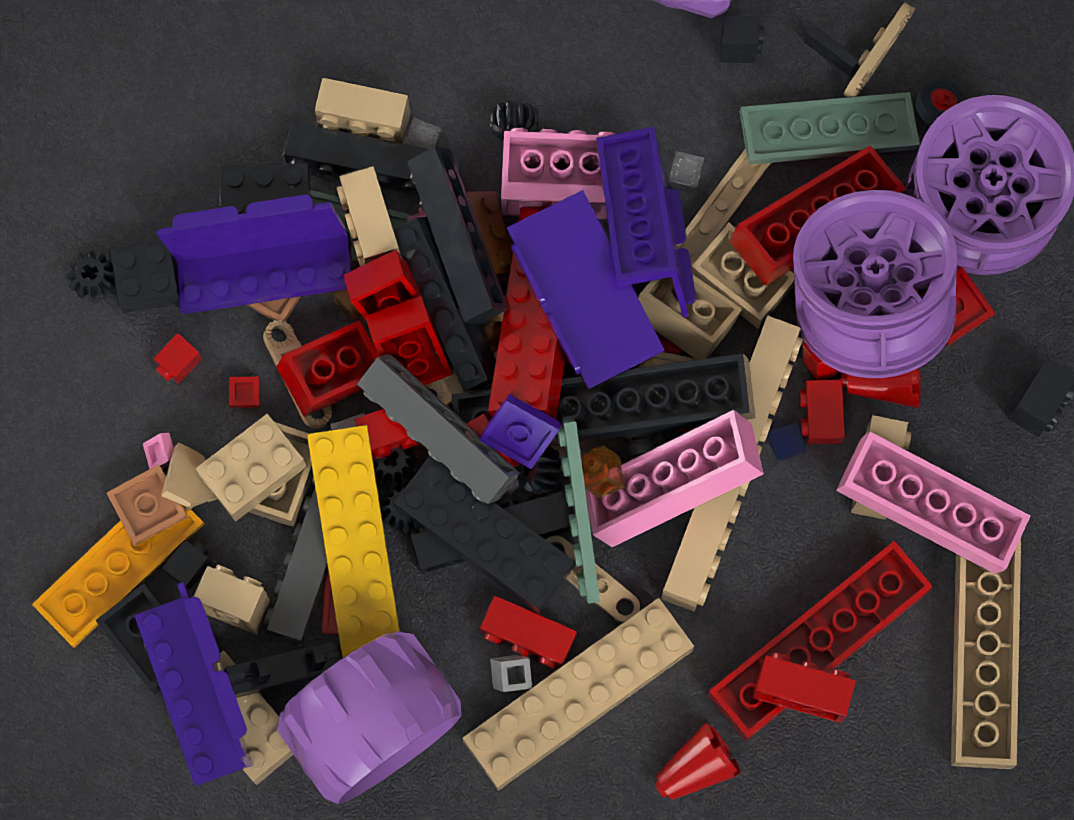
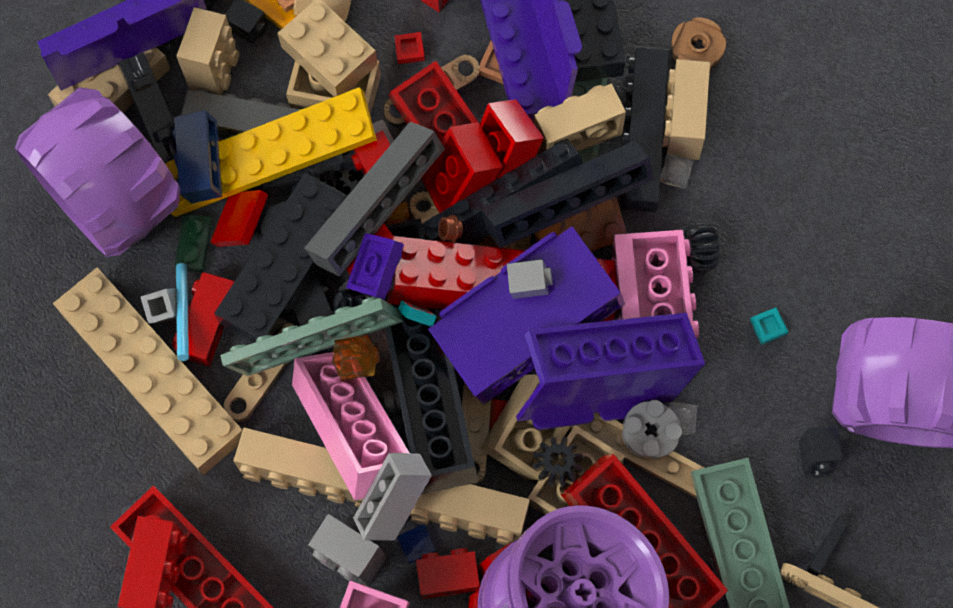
camera: 85 degrees right, 5 degrees down
(288, 109) = (700, 29): none -> medium nougat plate
(351, 619) = (197, 156): none -> dark blue brick
(423, 586) = (239, 218): none -> red tile
(441, 641) = (193, 242): none -> clear green plate
(482, 356) = (450, 228): none -> copper plate
(522, 651) = (182, 312): none -> medium azure bar
(559, 275) = (529, 279): none -> light grey brick
(571, 397) = (416, 313): none -> teal tile
(600, 71) = (768, 326): none -> teal tile
(697, 765) = (88, 489): red cone -> none
(704, 180) = (649, 446): none -> light grey plate
(719, 282) = (557, 472): none -> black gear
(765, 435) = (392, 496): none -> light grey brick
(799, 500) = (344, 548): none -> light grey brick

